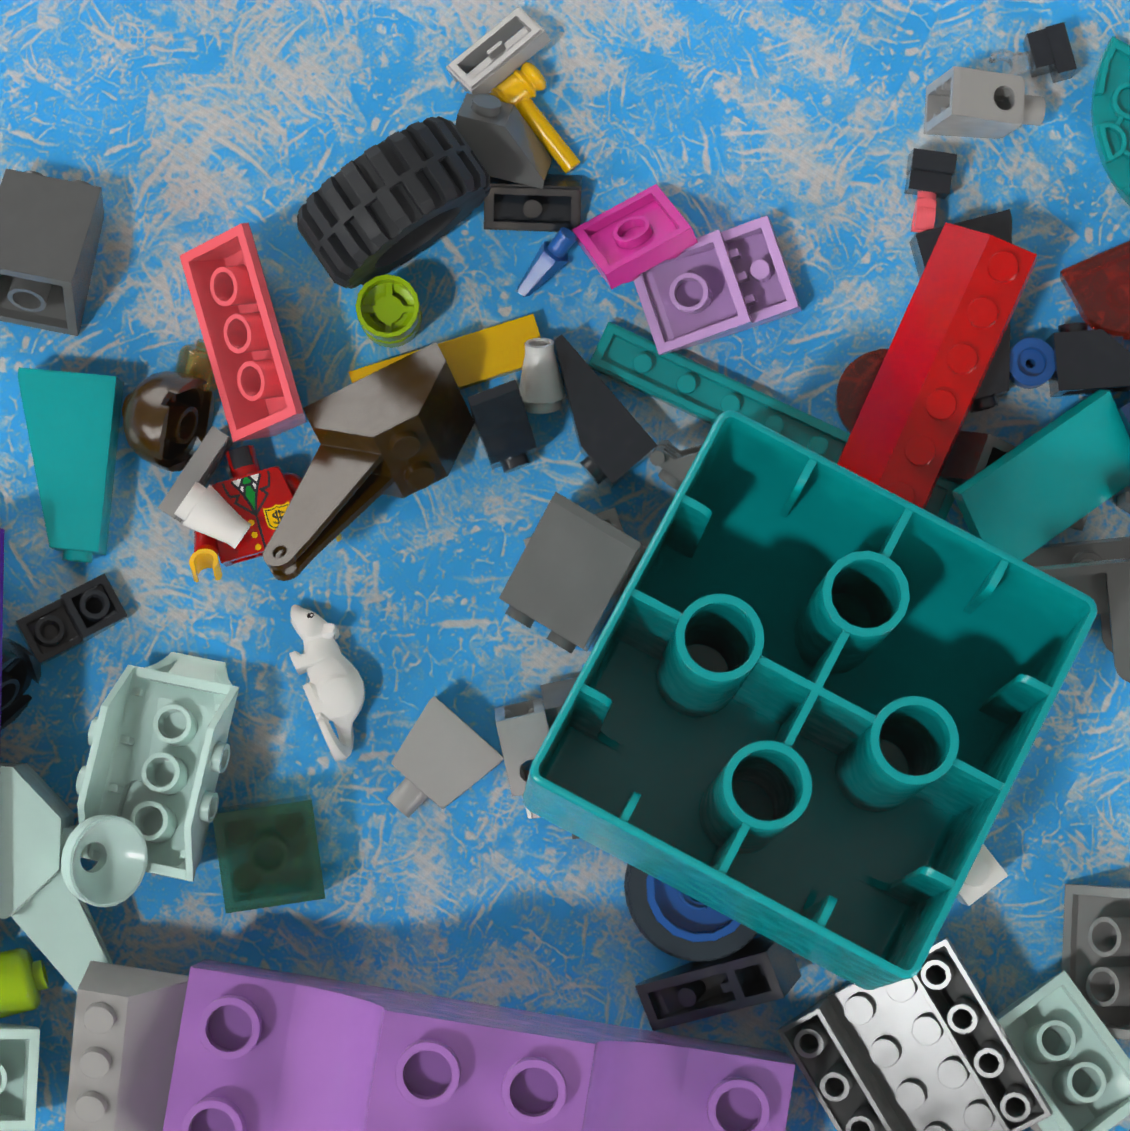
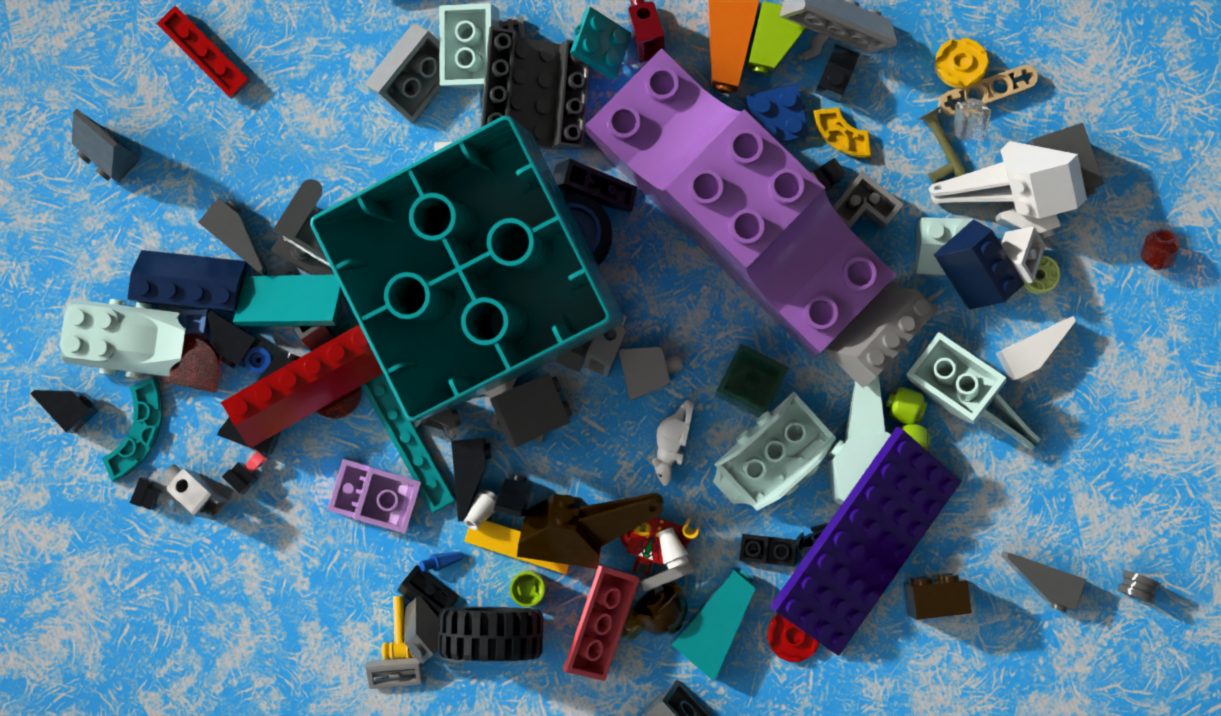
camera: 140 degrees left, 0 degrees up
(120, 862) = (822, 421): light aqua piece -> none
(635, 236) = (393, 543): dark pink plate -> none

